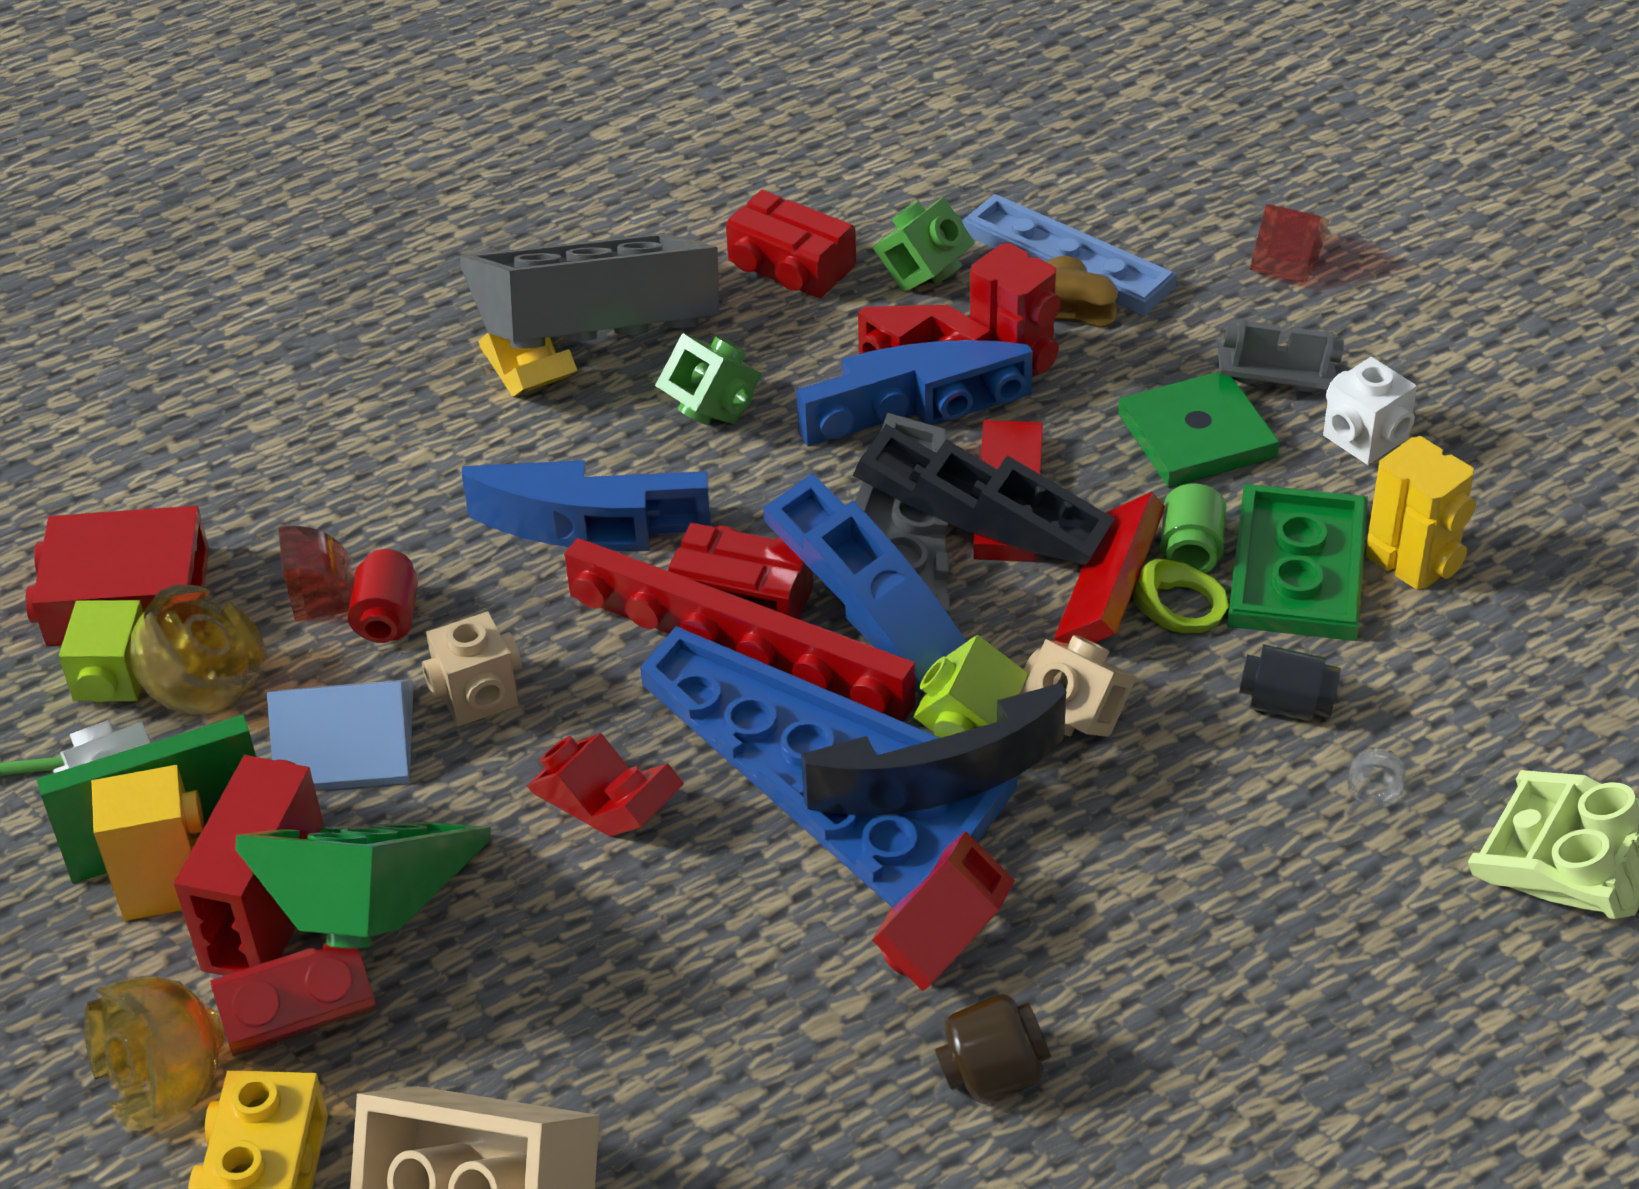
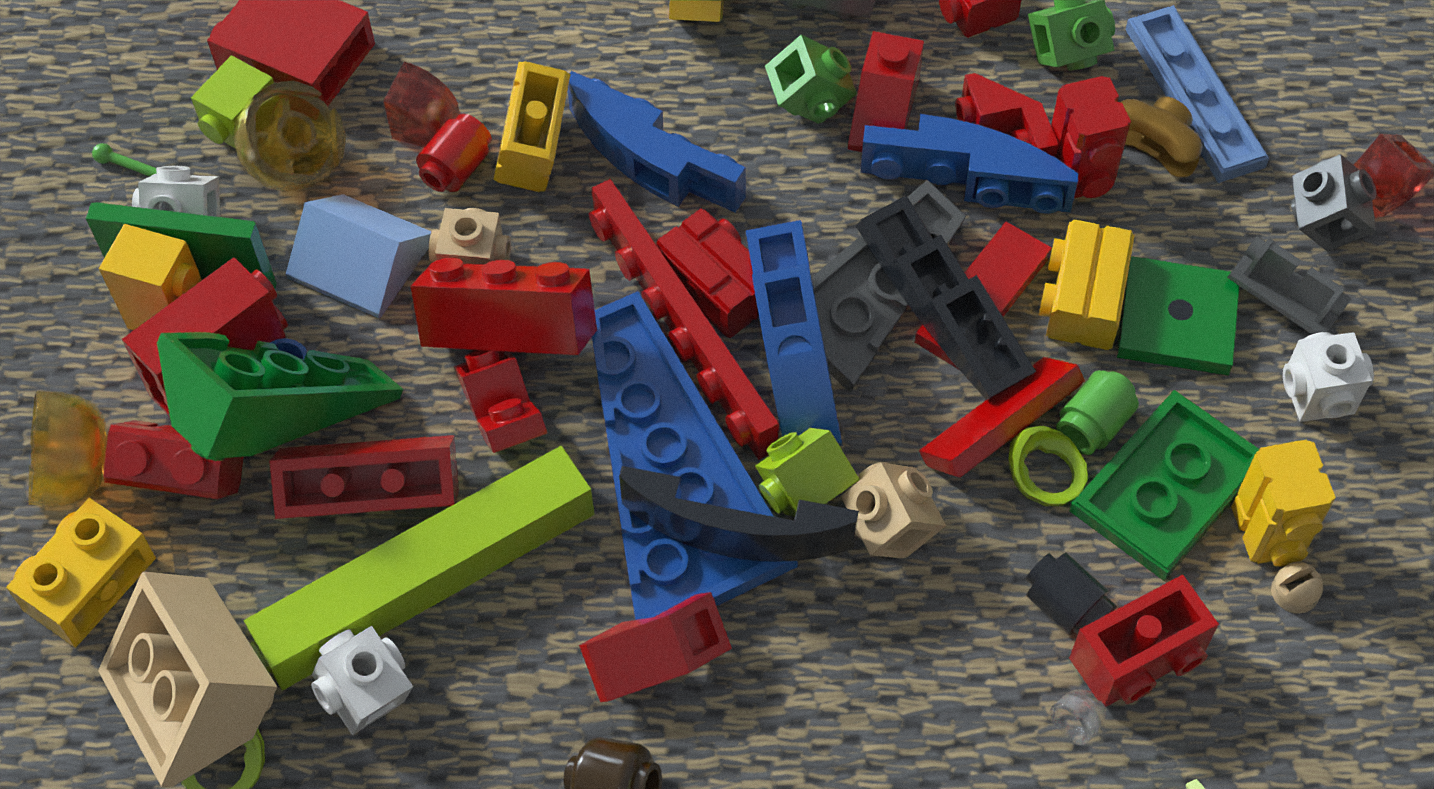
camera: 30 degrees right, 15 degrees up
(456, 533) = (532, 126): none -> yellow brick
(523, 909) = (364, 477): none -> red brick
(556, 689) = (504, 307): none -> red brick
(648, 955) = (423, 564): none -> lime brick
(662, 1089) = (360, 678): none -> white brick
(788, 354) = (886, 85): none -> red slope
(1102, 434) = (1089, 284): none -> yellow brick
(1265, 277) = (1334, 202): none -> dark grey brick
(1390, 679) = (1143, 642): none -> red brick
(1488, 587) = (1302, 595): none -> tan hinge

